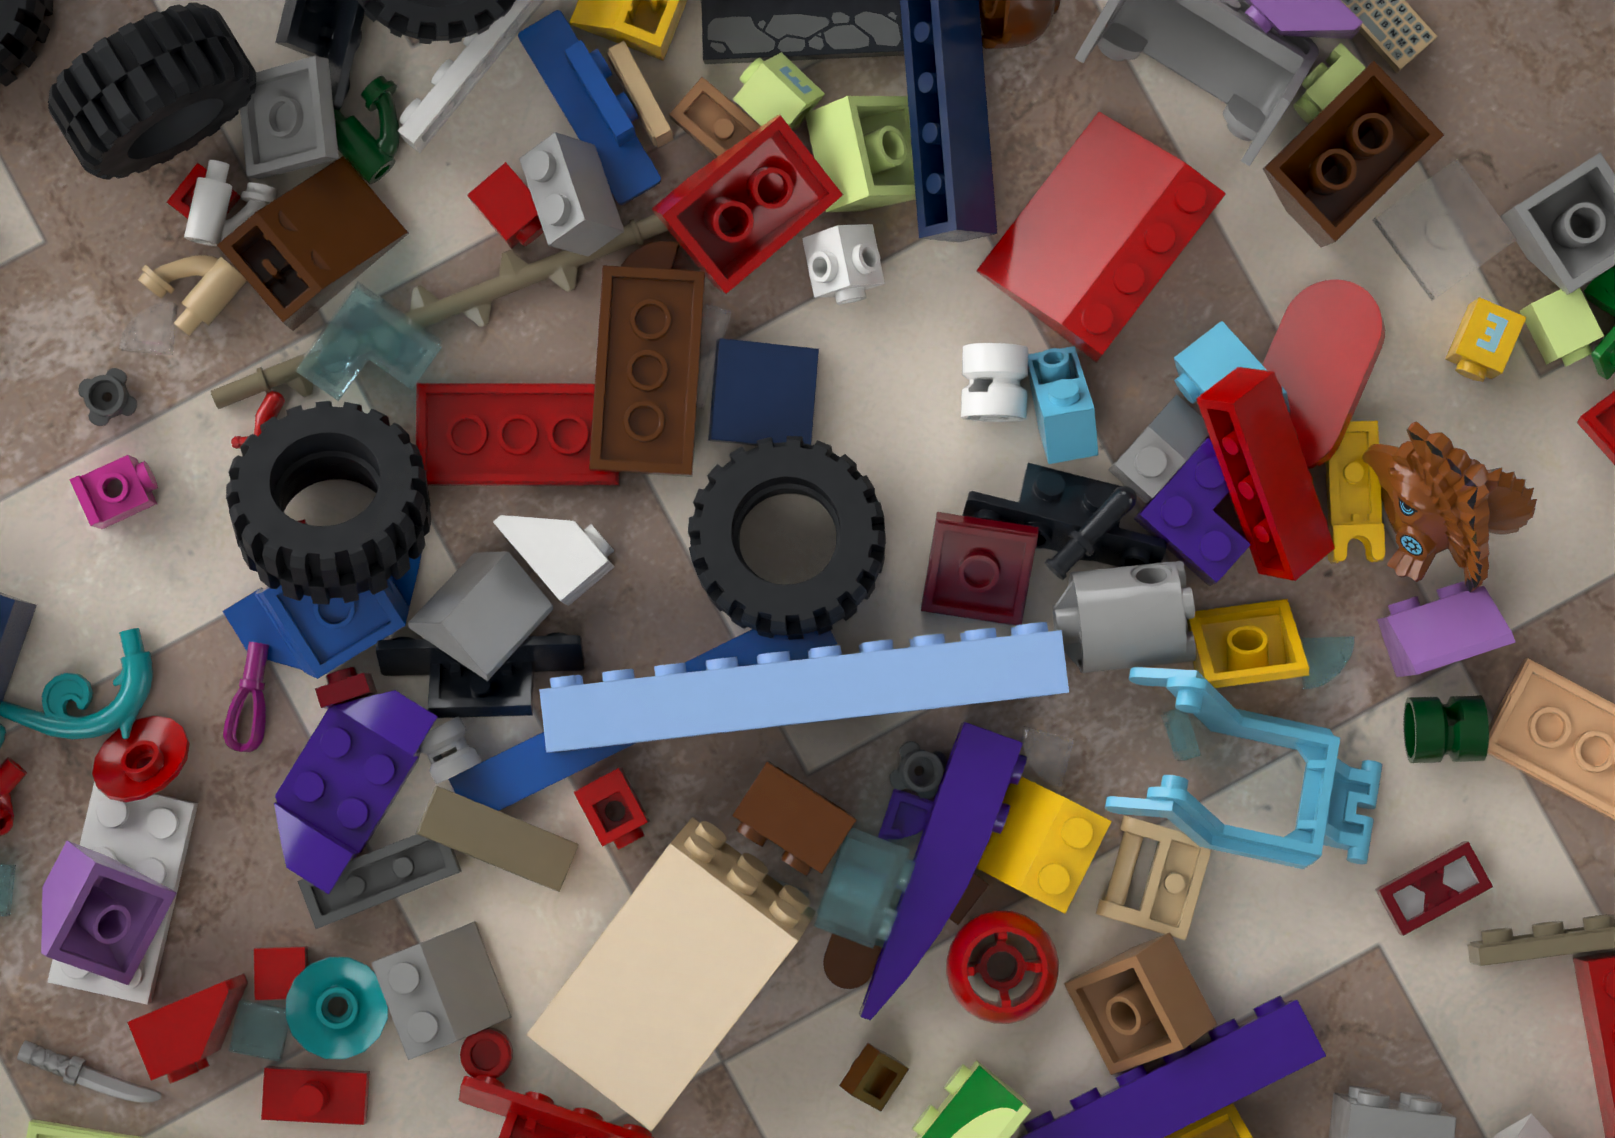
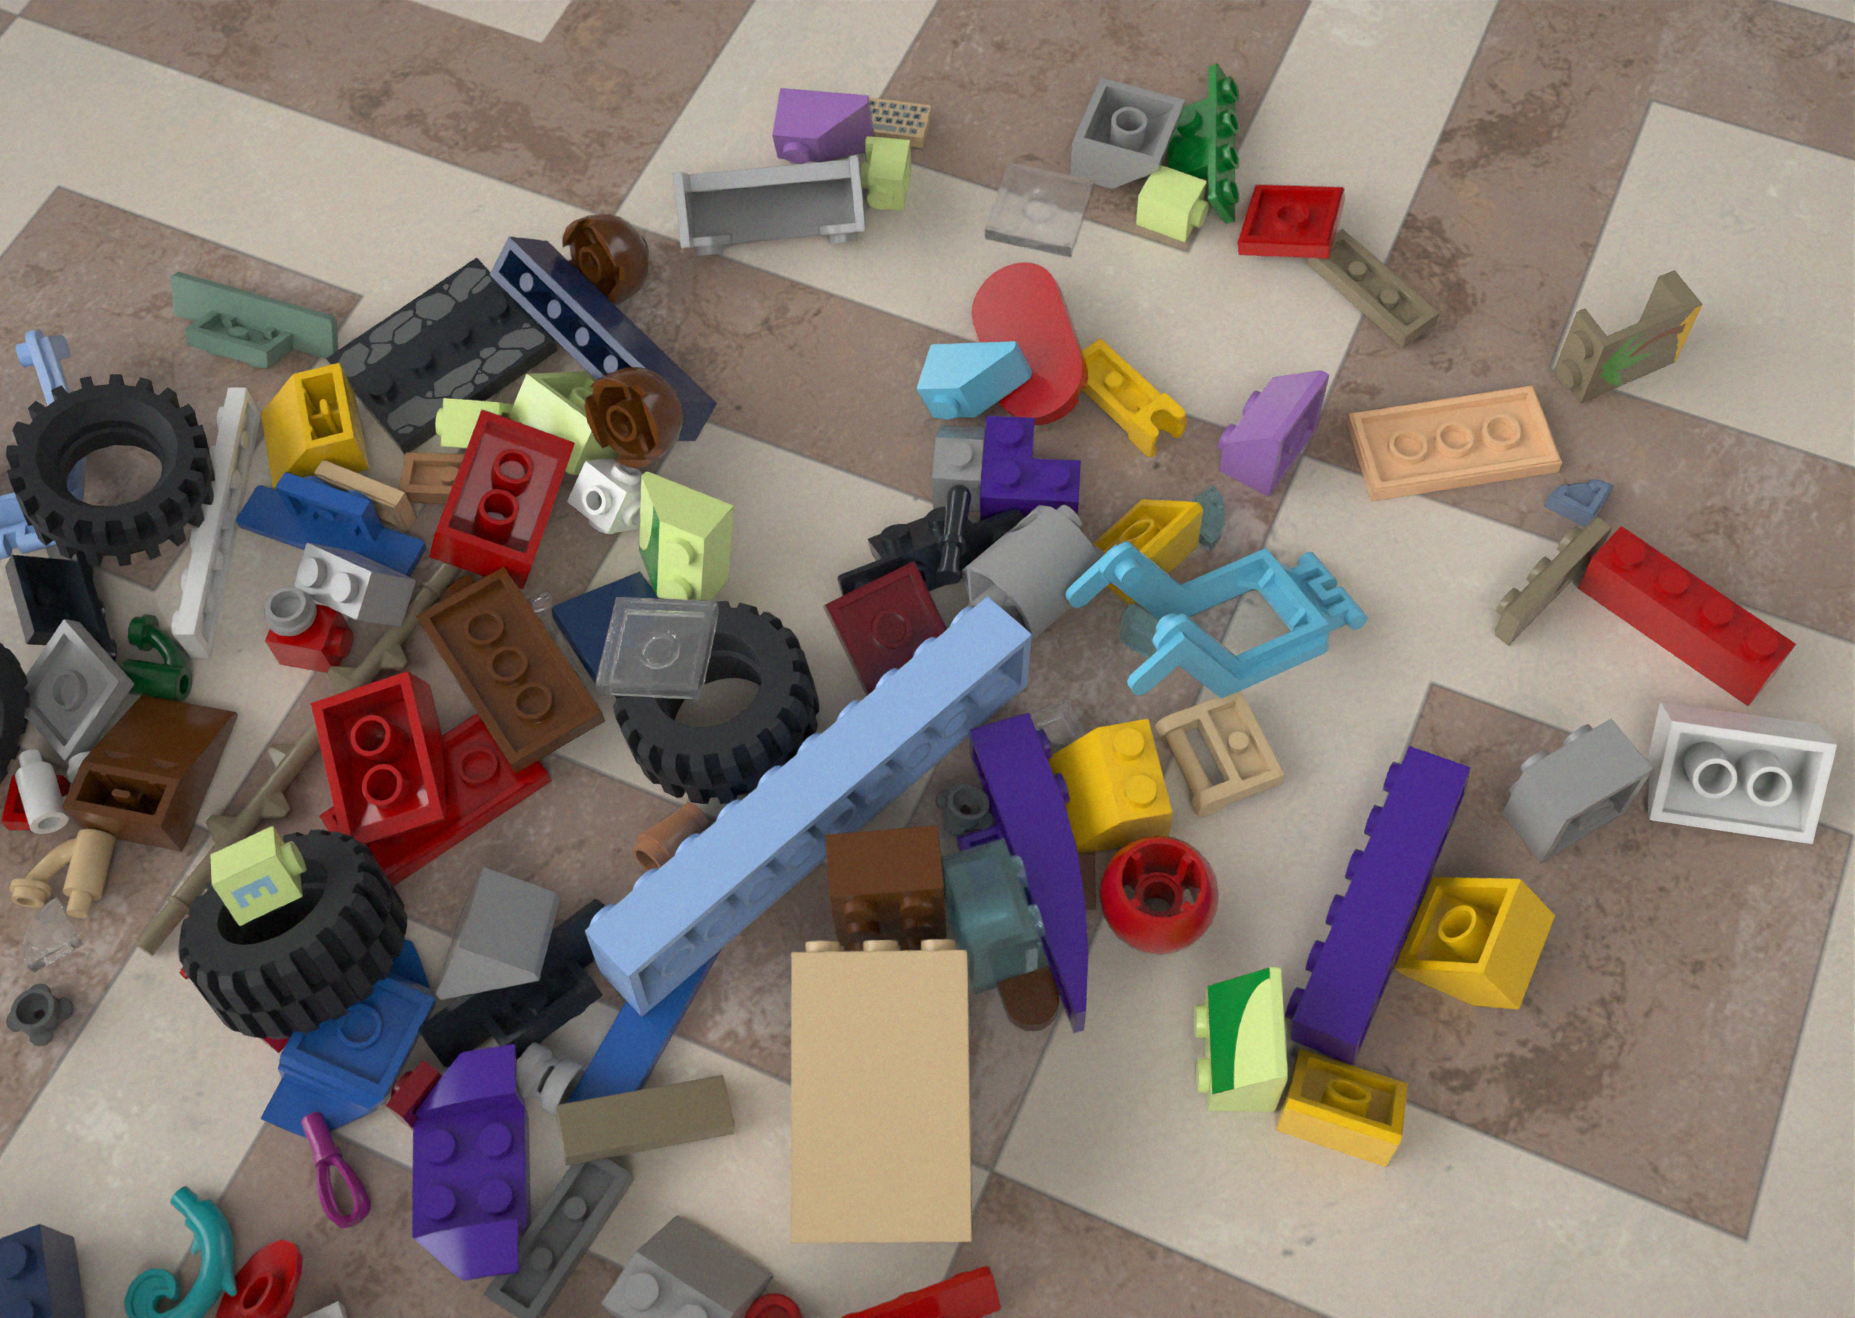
camera: 35 degrees left, 25 degrees down
(135, 497) = (93, 1082): dark pink brick -> none
(324, 457) = (257, 875): none -> yellowish green brick
(367, 330) = (247, 782): clear light blue brick -> none
(492, 387) = (383, 757): none -> red slope
(501, 189) = (289, 611): none -> light grey plate
(559, 552) = (529, 839): white slope -> none
(595, 799) = (720, 1005): red brick -> none
(672, 619) = (662, 840): none -> nougat cone
(766, 472) = (657, 648): none -> clear tile
(864, 363) = (684, 539): none -> yellowish green slope
(874, 1077) = (1129, 1073): reddish brown plate -> none
(908, 223) = (634, 415): none -> reddish brown cylinder
(994, 382) = (795, 498): white wheel -> none
(1062, 405) = (861, 480): medium azure slope -> none
(1100, 234) = (798, 362): red slope -> none
(1141, 1004) = (1293, 852): medium nougat slope -> none
(1266, 472) = (1049, 401): red brick -> none
(1350, 155) = (931, 193): reddish brown slope -> none
(1434, 888) = (1432, 607): dark red piece -> none
(1443, 729) = (1336, 491): dark green wheel -> none
(1445, 502) = (1194, 326): dark orange piece -> none
(1484, 340) = (1128, 244): yellow brick -> none

